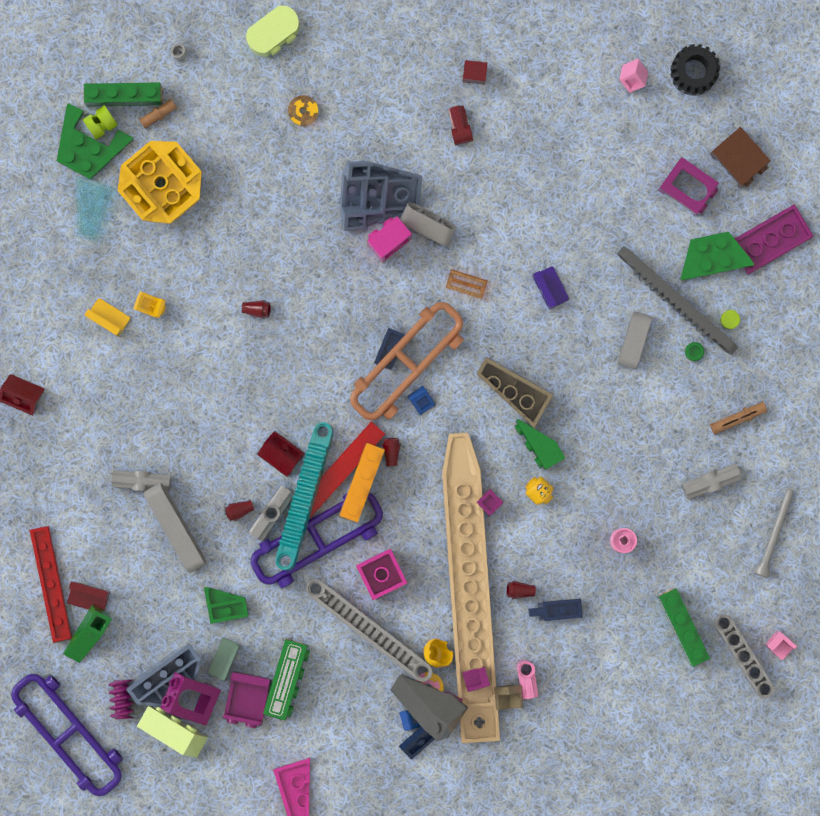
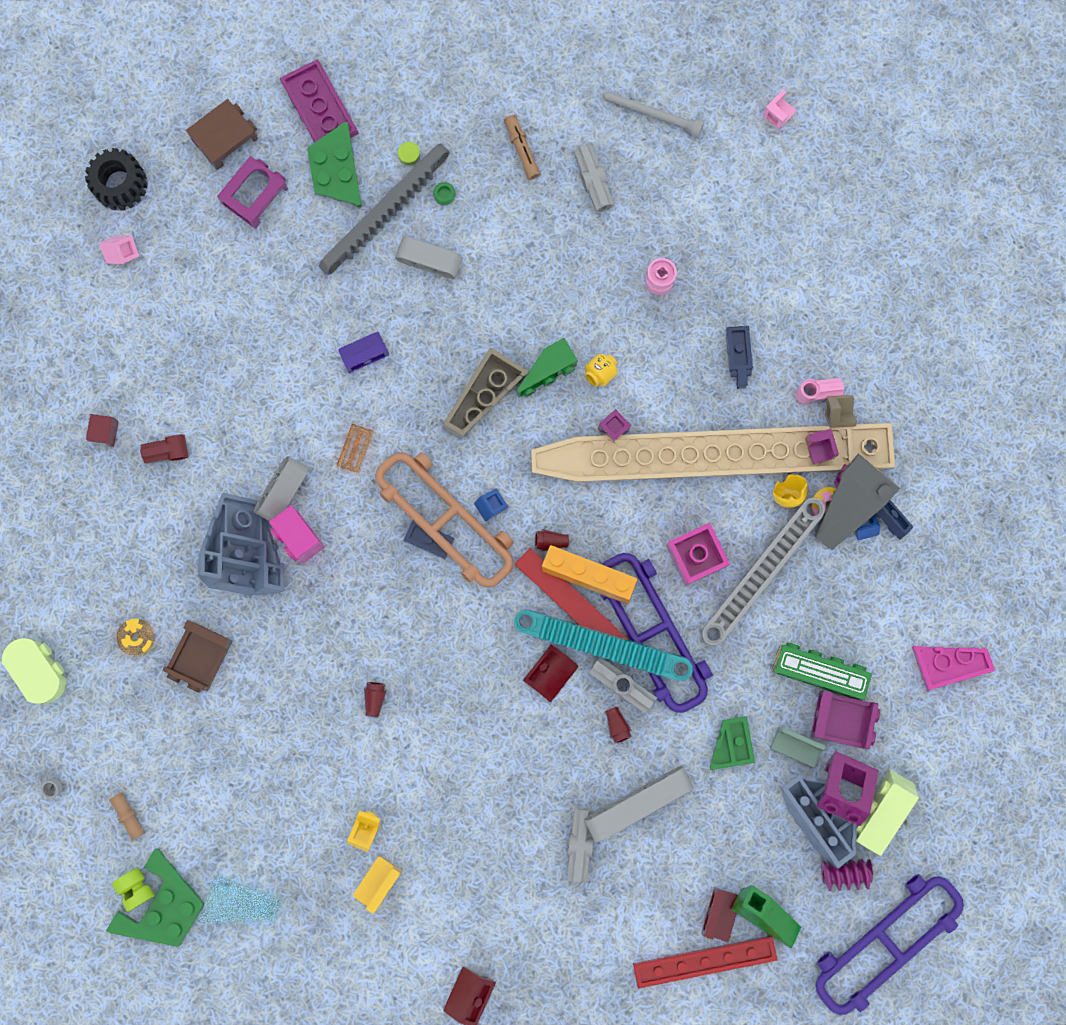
camera: 90 degrees left, 5 degrees down
(123, 94) = (99, 860): green brick -> none
(156, 162) = (187, 821): yellow piece -> none
(287, 162) = (197, 657): none -> reddish brown panel
(520, 590) = (716, 396): dark red cone -> none
(683, 627) = (760, 213): green brick -> none
(750, 663) = (799, 142): light grey beam -> none

